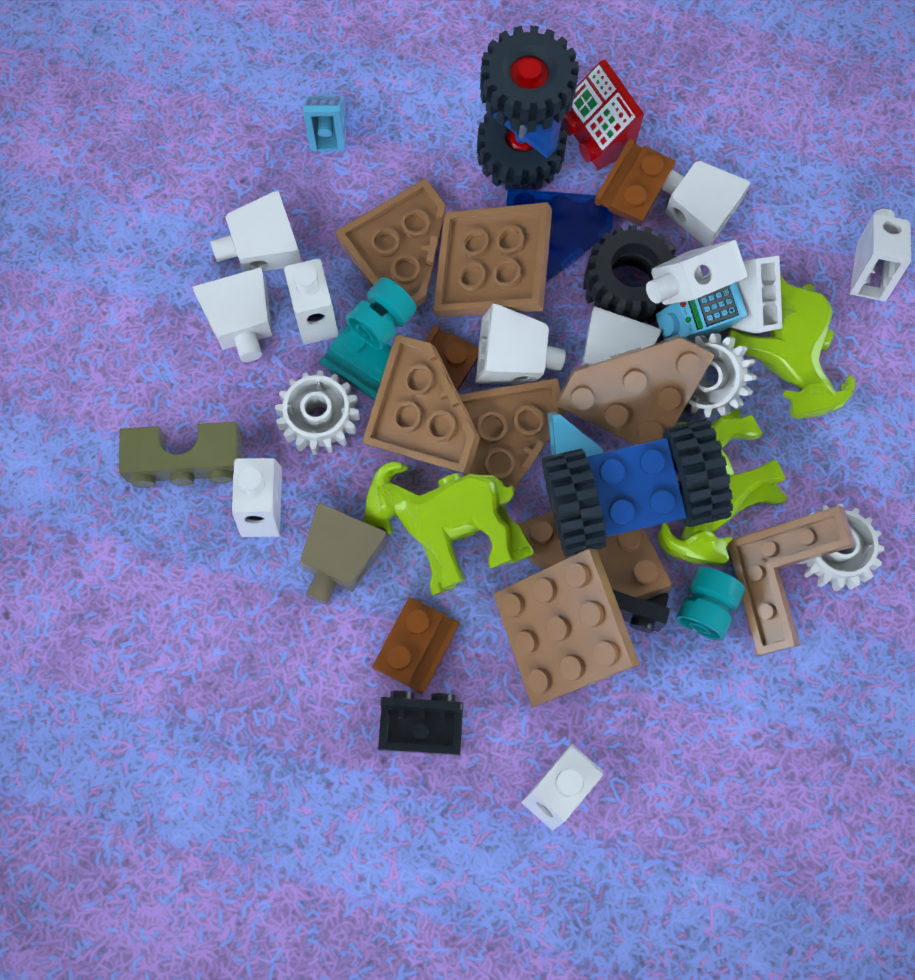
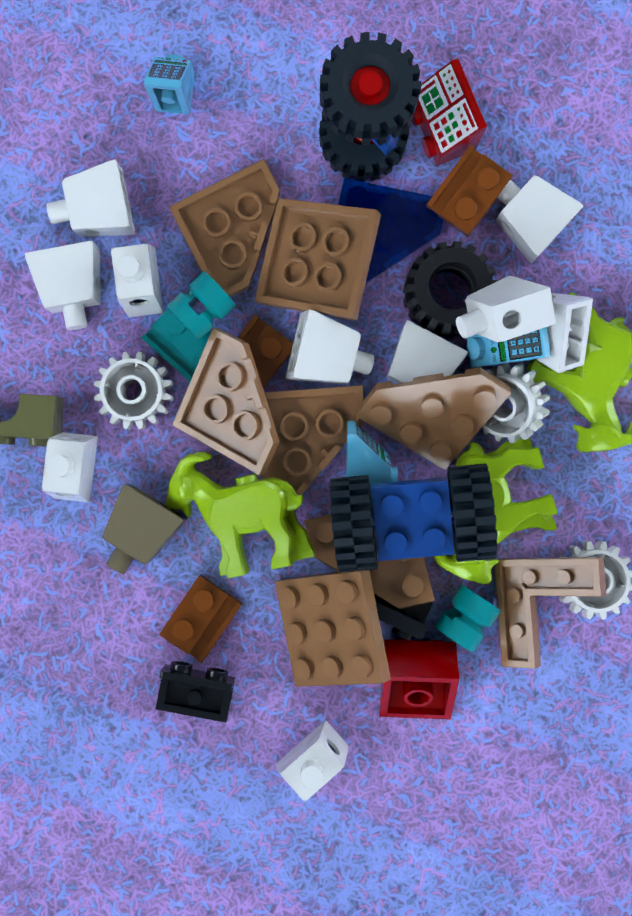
camera: 10 degrees right, 15 degrees up
(671, 682) = (421, 679): none -> red slope

